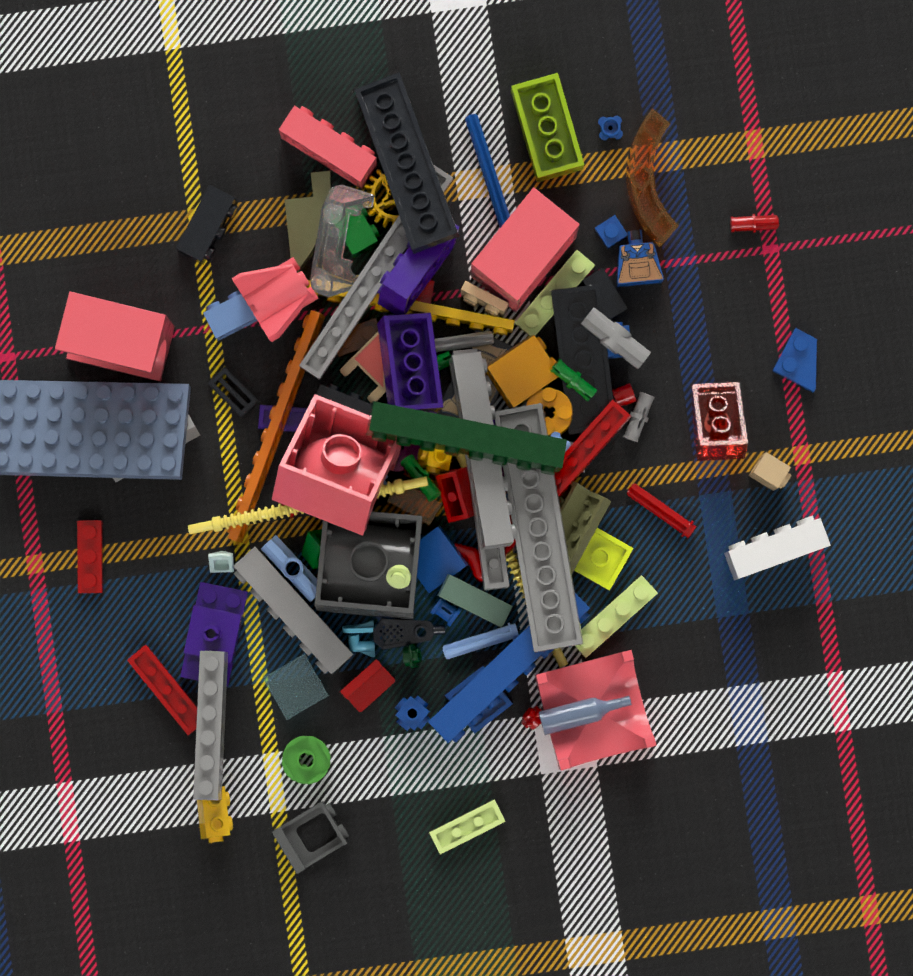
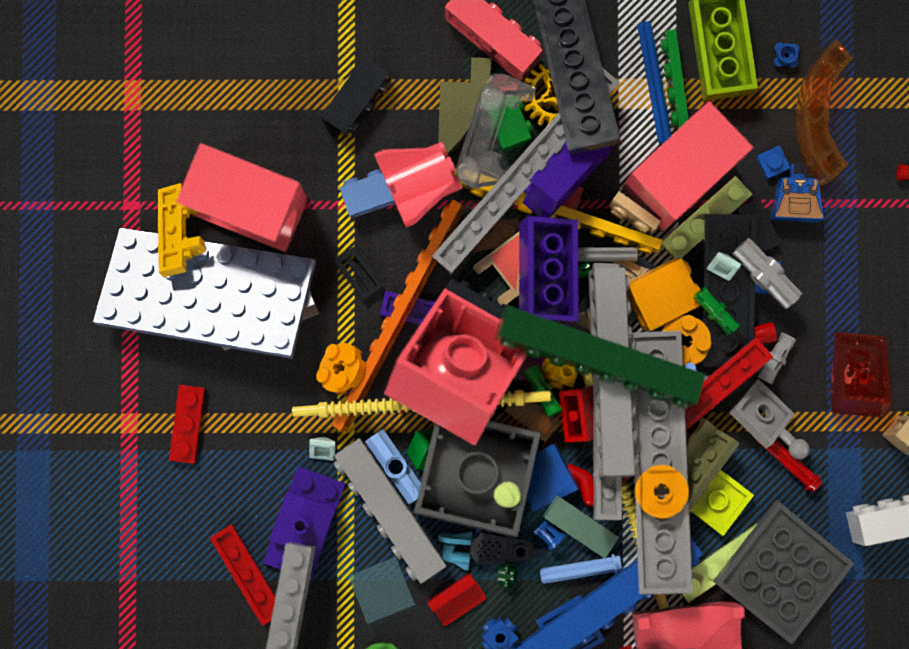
camera: 10 degrees right, 0 degrees up
(54, 389) = (173, 245): none -> yellow hinge
(221, 473) = (334, 358): none -> light orange plate
(504, 158) = (673, 71): none -> green plate
(553, 562) = (650, 481): none -> light orange plate
(574, 336) = (724, 265): none -> light aqua slope
(645, 472) = (773, 425): none -> light grey plate
(670, 616) = (783, 572): none -> dark grey plate

